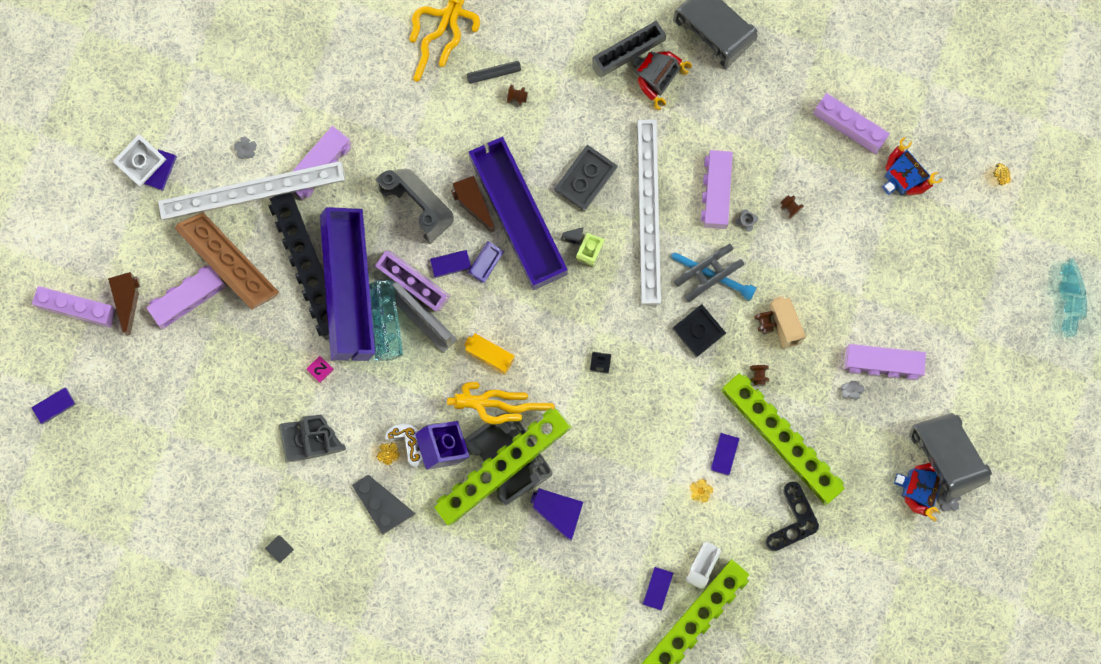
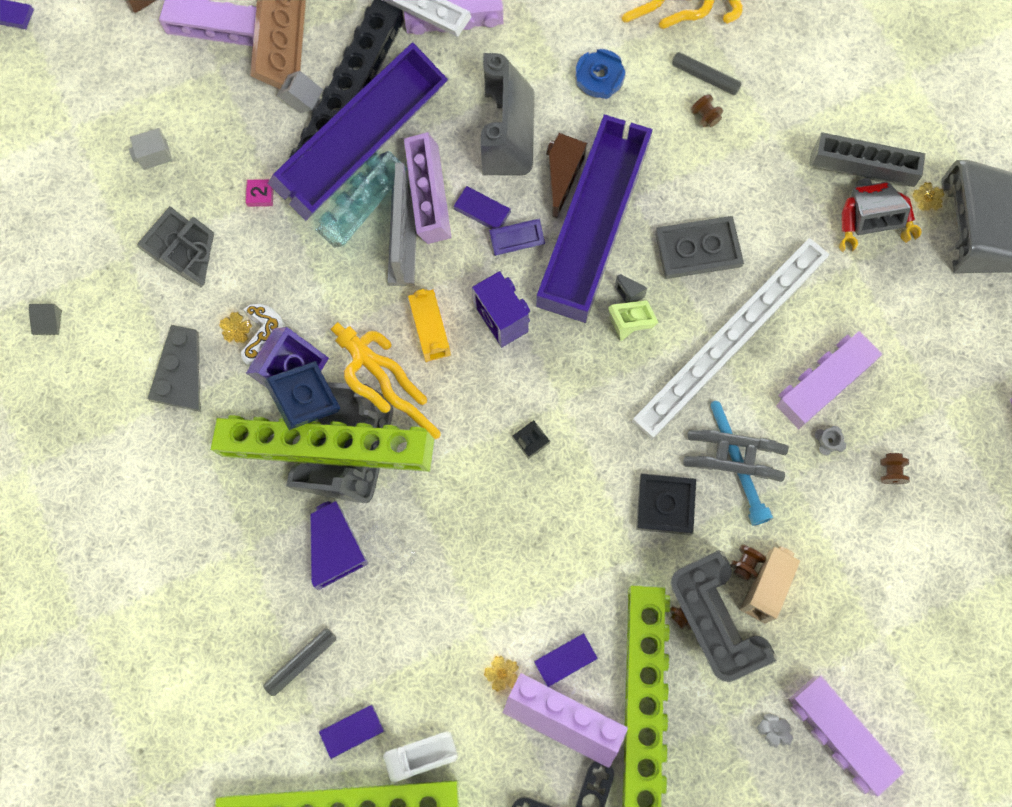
camera: 50 degrees right, 5 degrees down
(233, 403) = (150, 149): none -> light grey brick
(284, 292) = (300, 92): none -> light grey brick
(434, 136) = (597, 86): none -> blue plate
(469, 452) = (302, 395): none -> dark blue tile
(520, 309) = (501, 308): none -> dark purple brick
(599, 582) = (299, 662): none -> dark grey axle
(675, 37) = (928, 197): none -> clear yellow plant
(753, 481) = (565, 720): none -> lavender brick
(798, 375) = (711, 622): none -> dark grey windscreen

